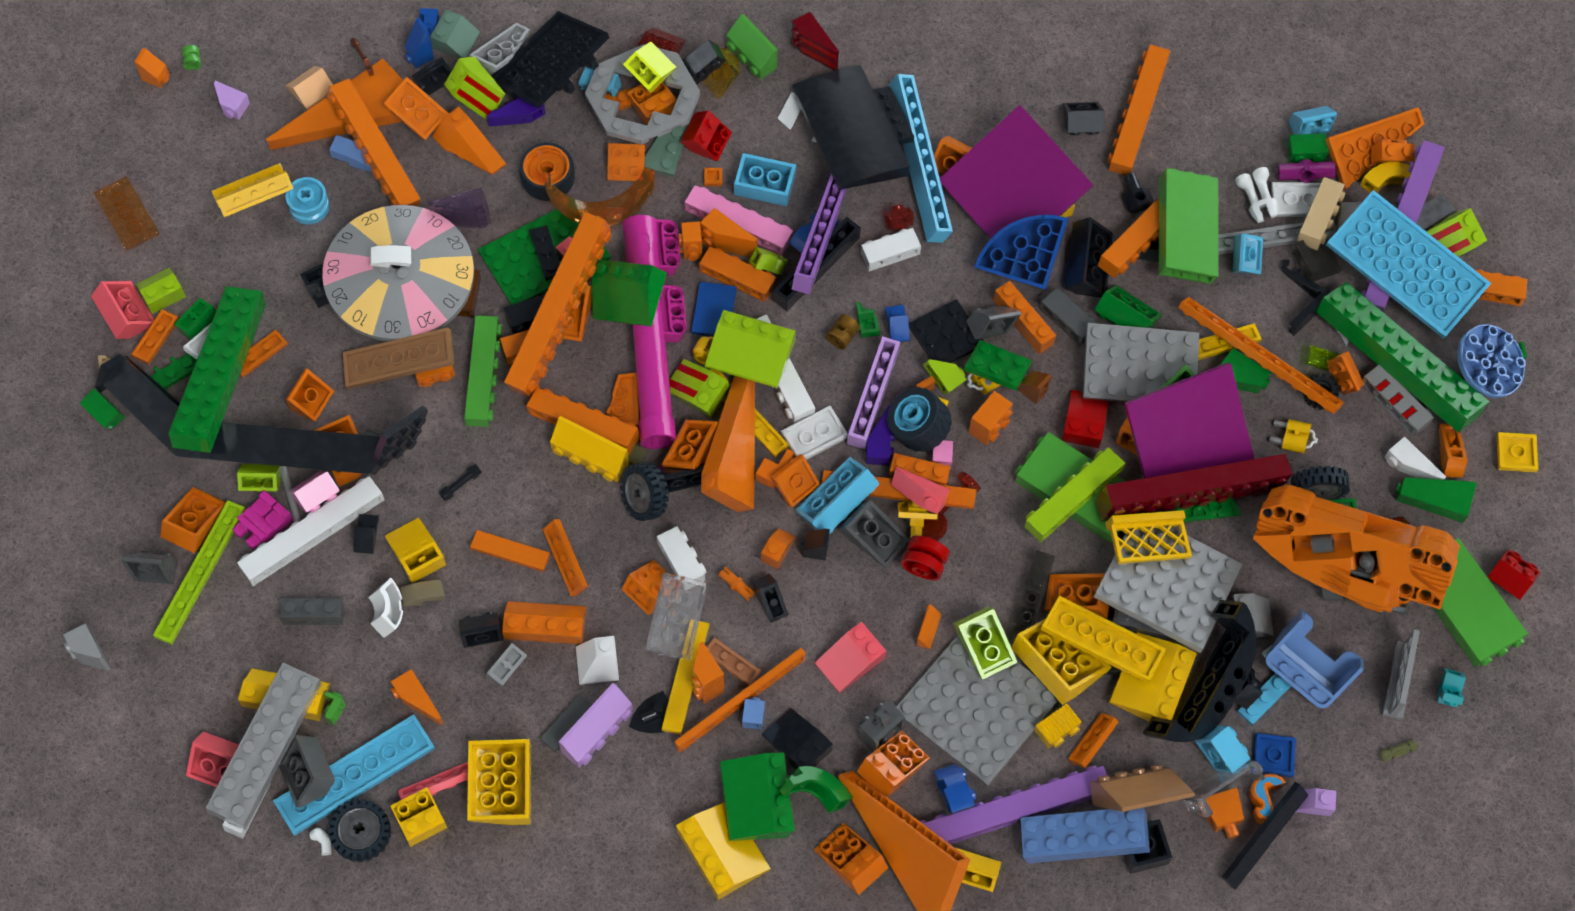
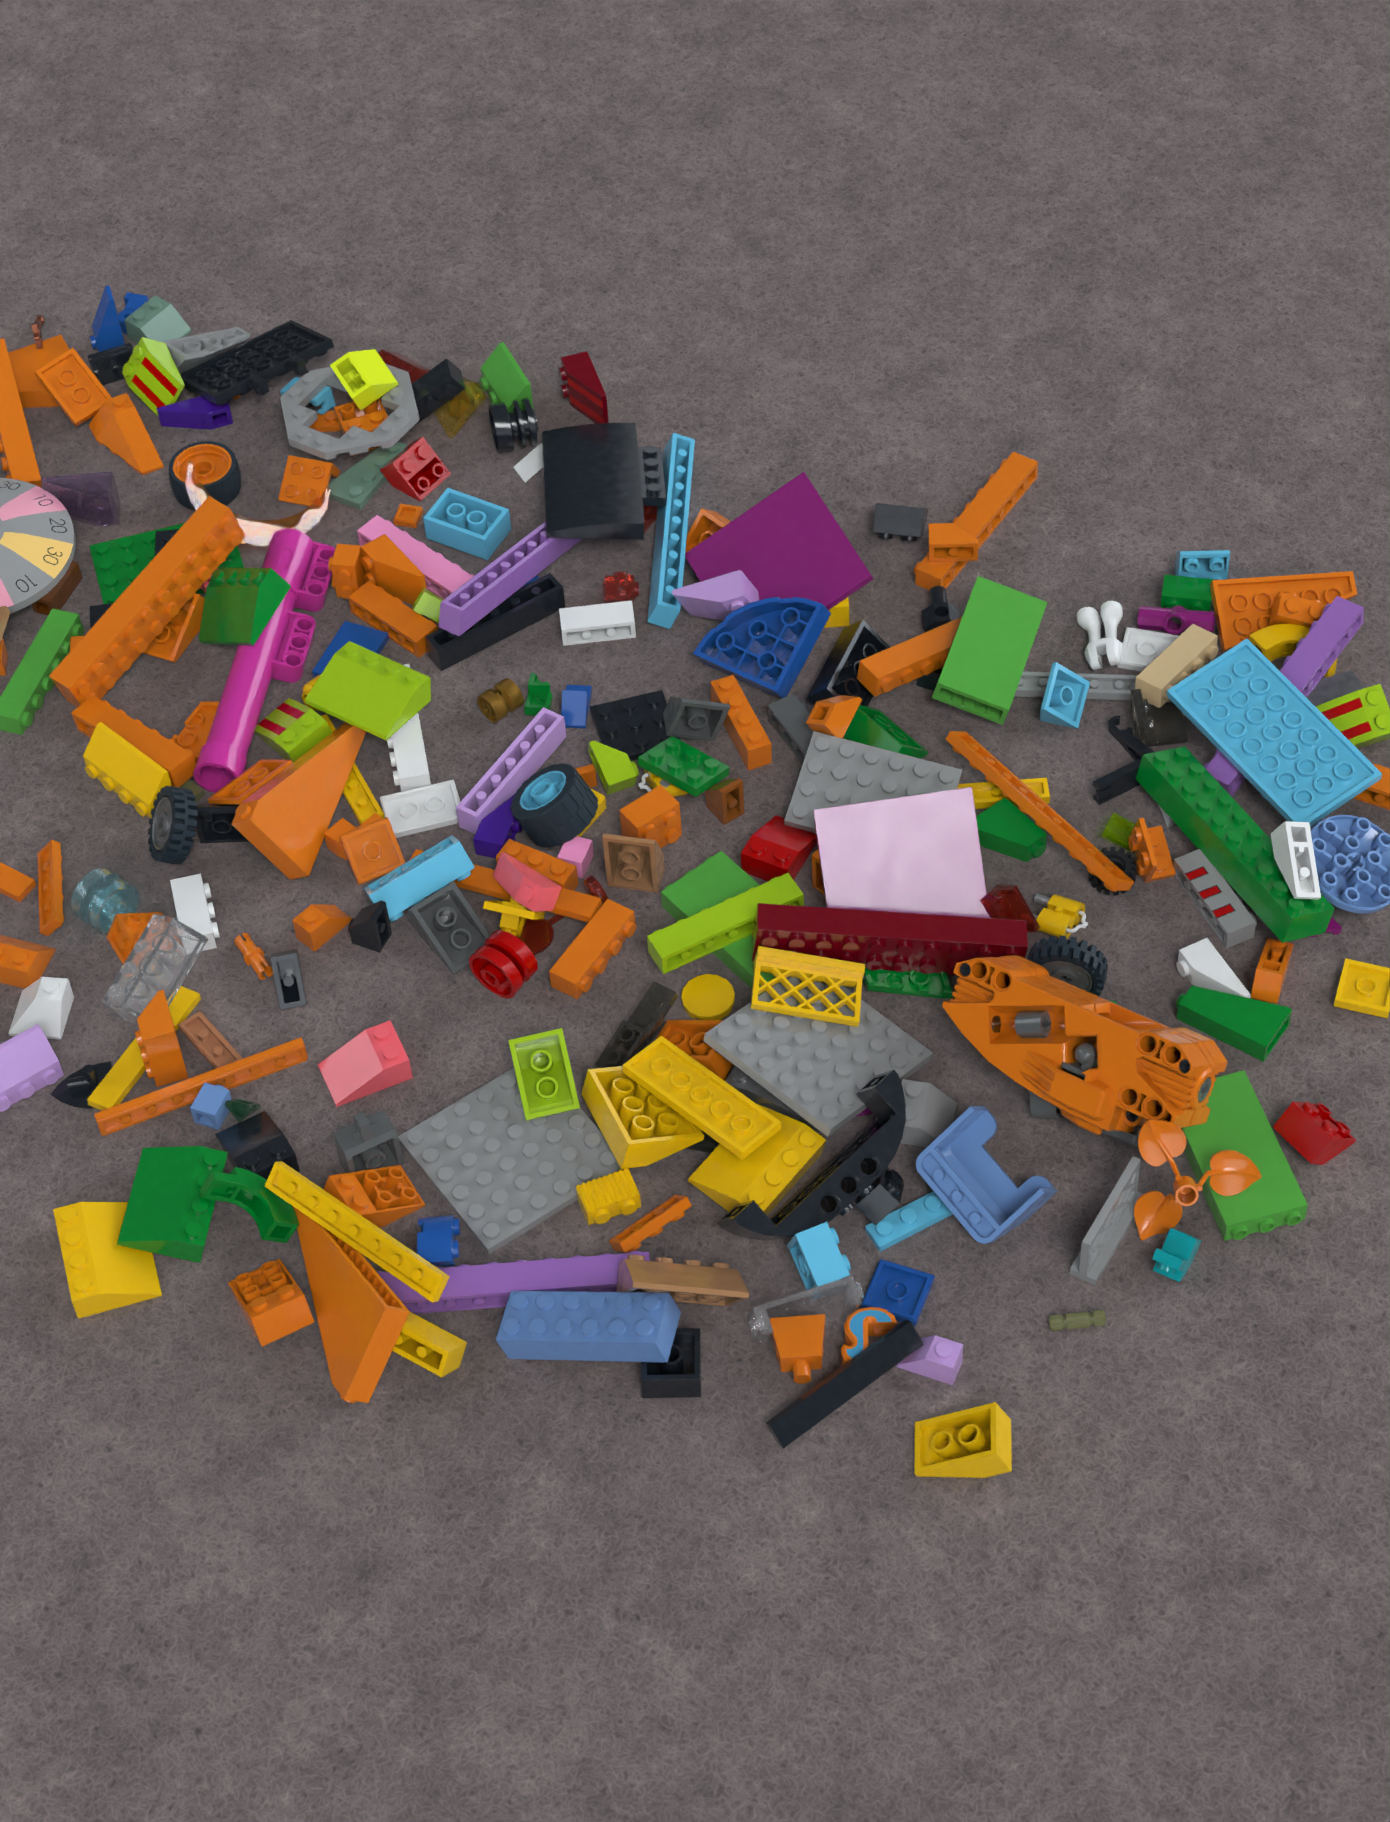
camera: 20 degrees right, 15 degrees down
(615, 564) = (103, 896): none -> clear light blue wheel
(770, 84) = (513, 425): none -> black wheel
(774, 710) = (241, 1108): none -> clear green slope
(901, 798) = (357, 1231): none -> yellow plate
(928, 627) = (480, 1049): orange slope -> none
(980, 528) = (592, 949): none -> orange brick
(986, 218) = (717, 596): none -> lavender slope
(990, 456) = (633, 863): none -> medium nougat slope
(1072, 550) = (708, 997): none -> yellow tile
(1098, 306) = (833, 715): none -> orange slope
(1132, 137) = (950, 543): none -> orange slope
(1265, 441) = (1009, 904): none -> clear red hinge
(1353, 861) = (964, 1444): none -> yellow slope
(1431, 619) = (1159, 1142): none -> orange plant
(1458, 371) = (1296, 859): none -> white slope

